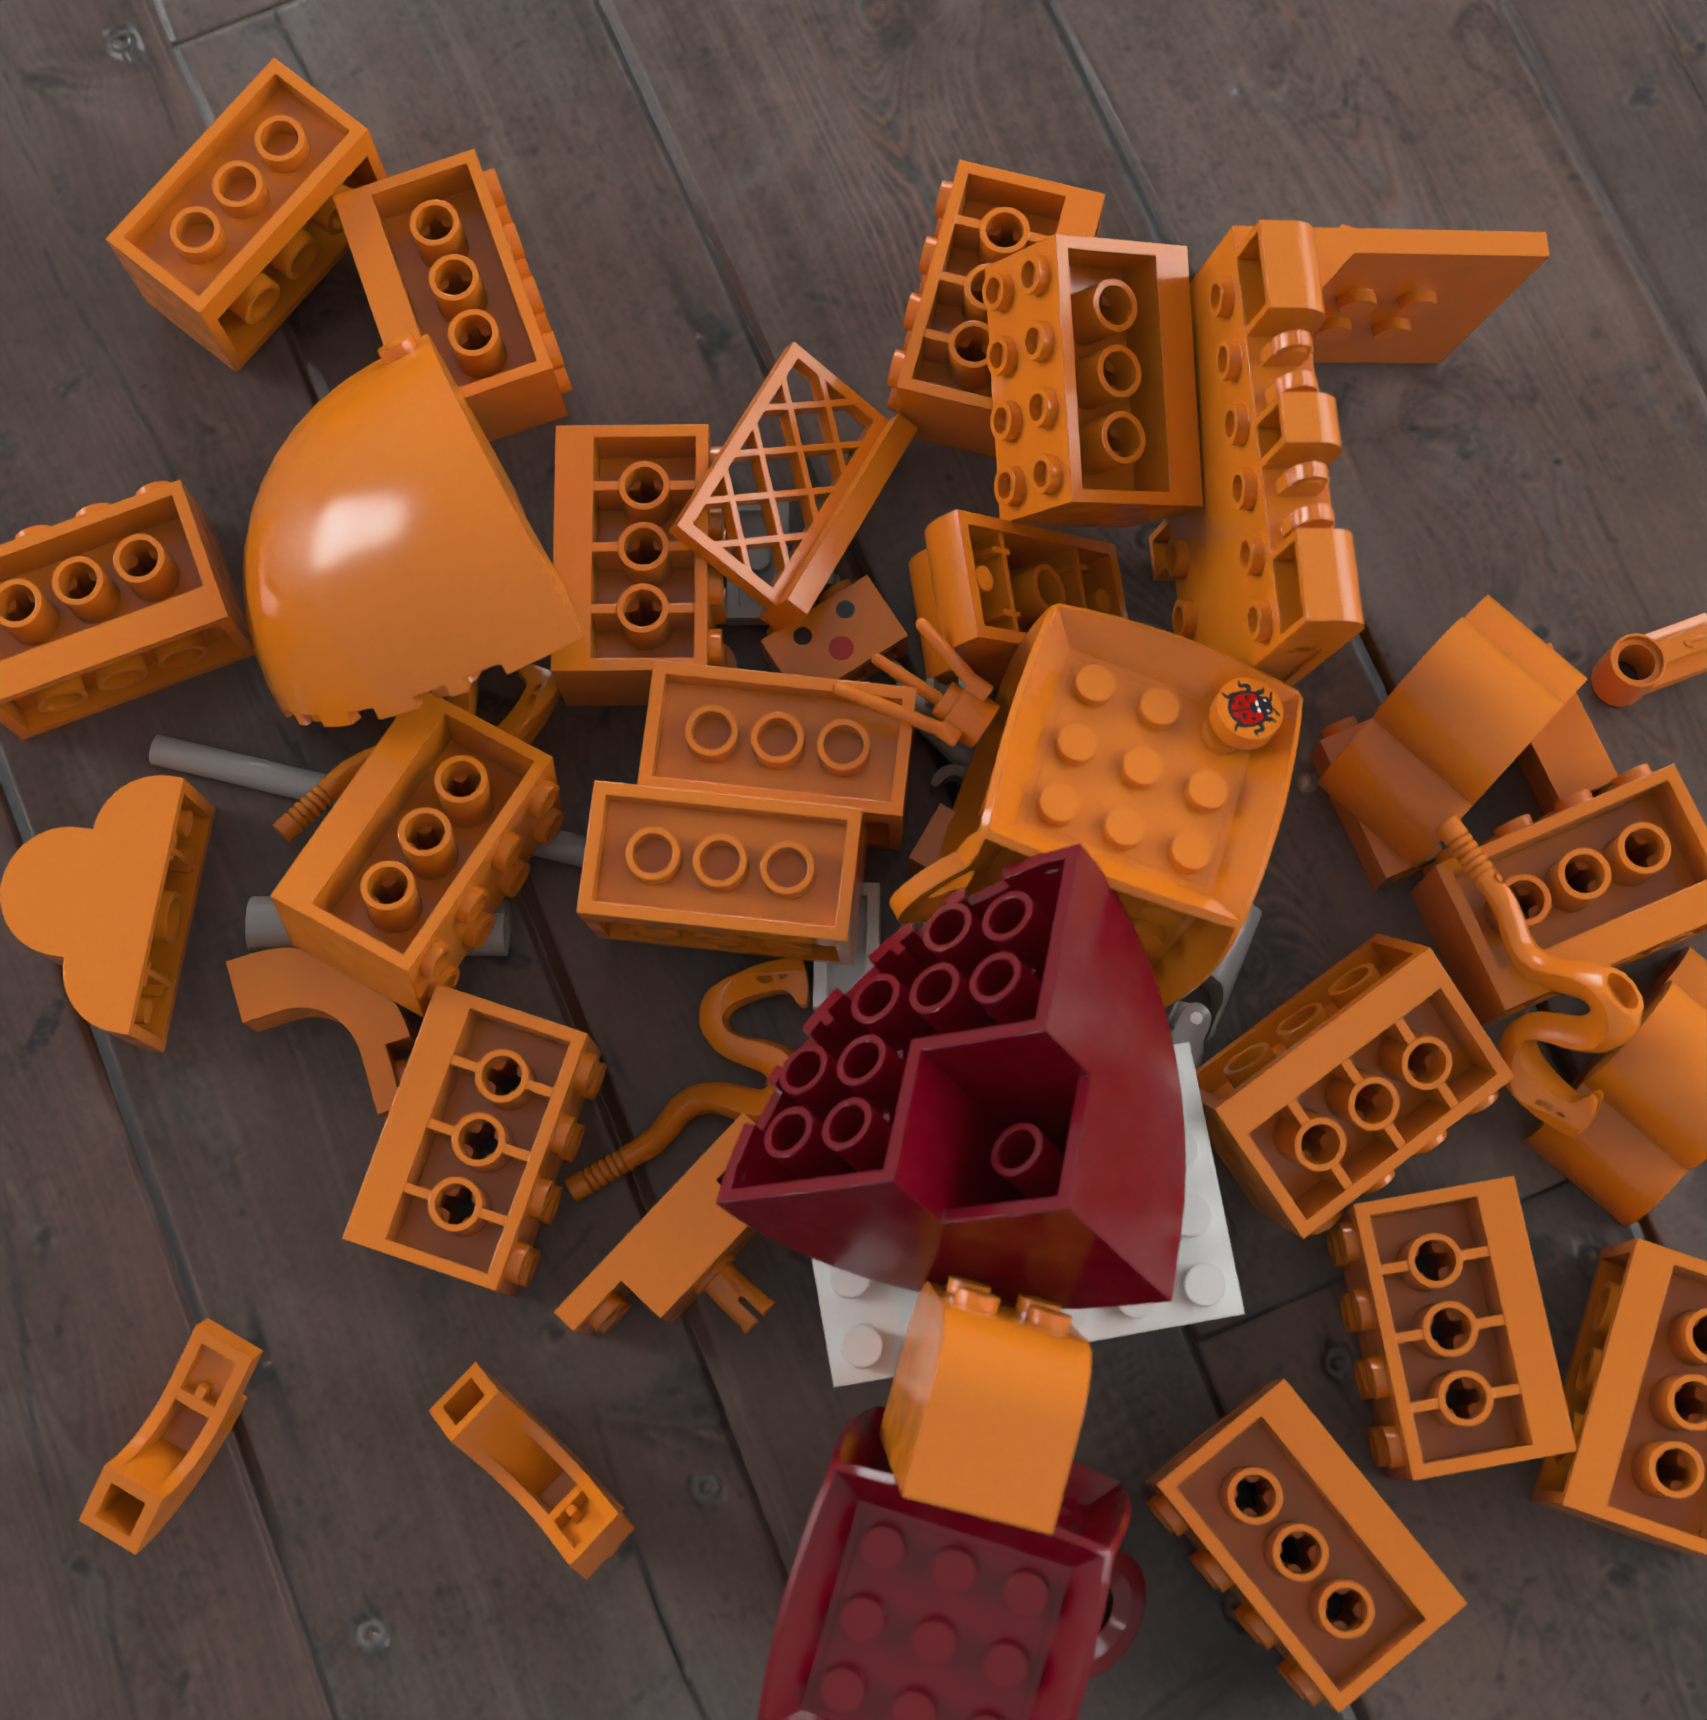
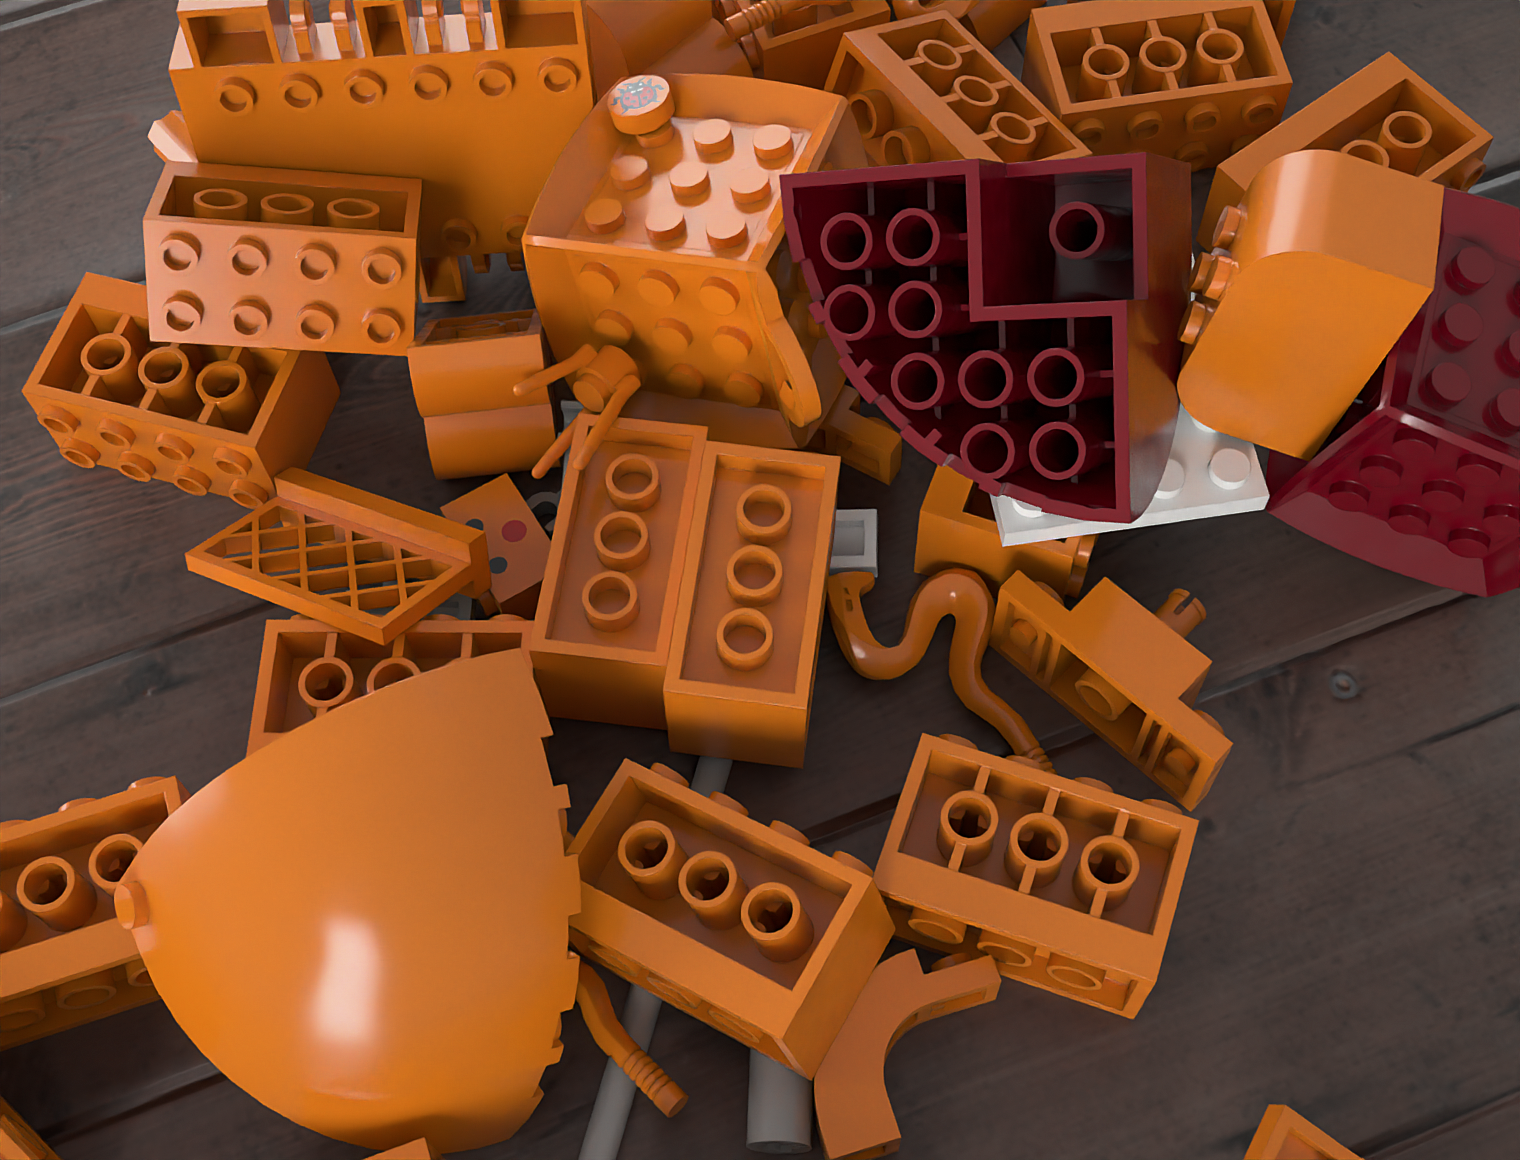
camera: 90 degrees left, 15 degrees down
(534, 1468) = (1365, 812): orange arch -> none

